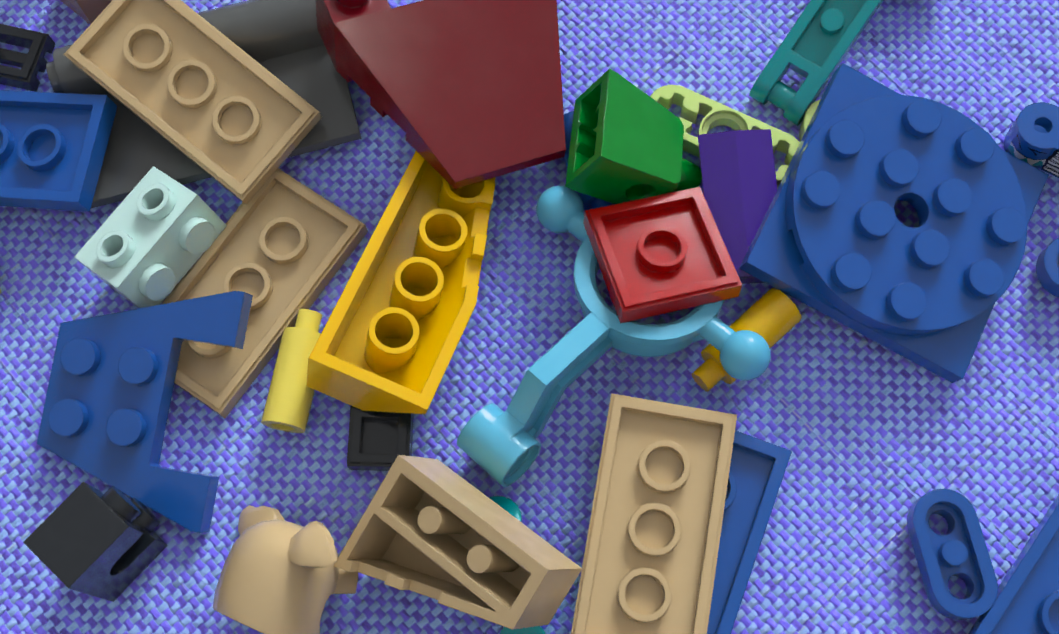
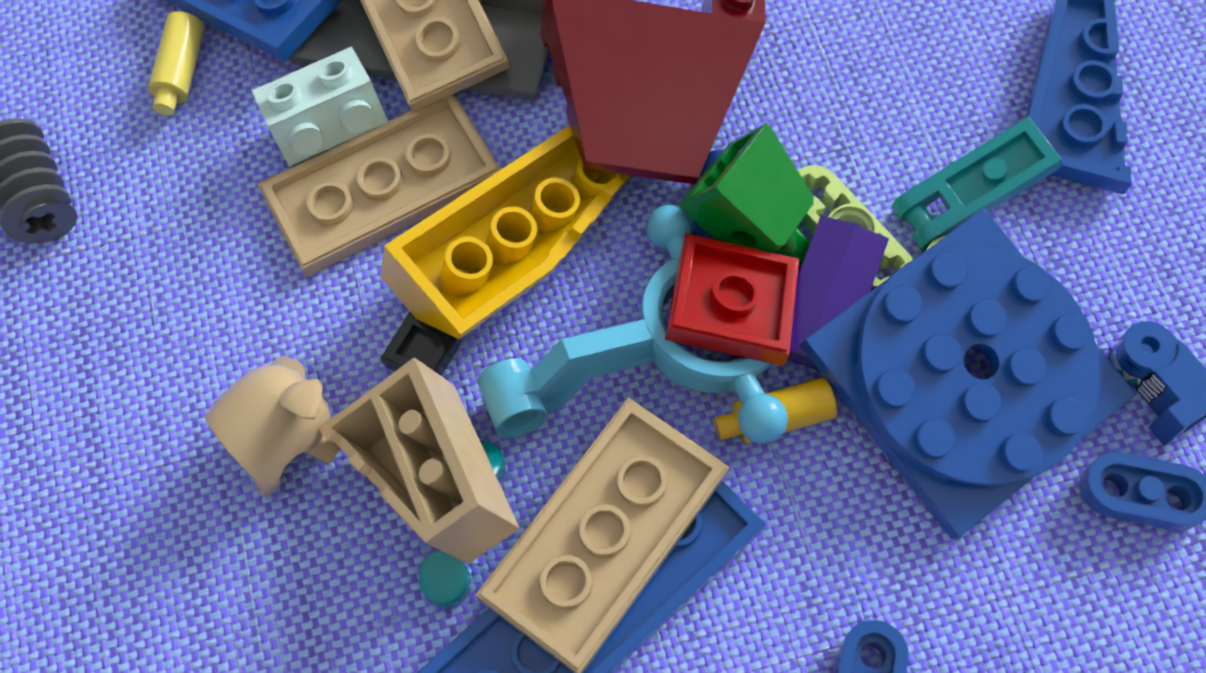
camera: 25 degrees right, 5 degrees down
(97, 541) = (145, 320): black brick -> none
(115, 394) = (229, 214): blue wing -> none
(288, 396) = (362, 281): light yellow cylinder -> none

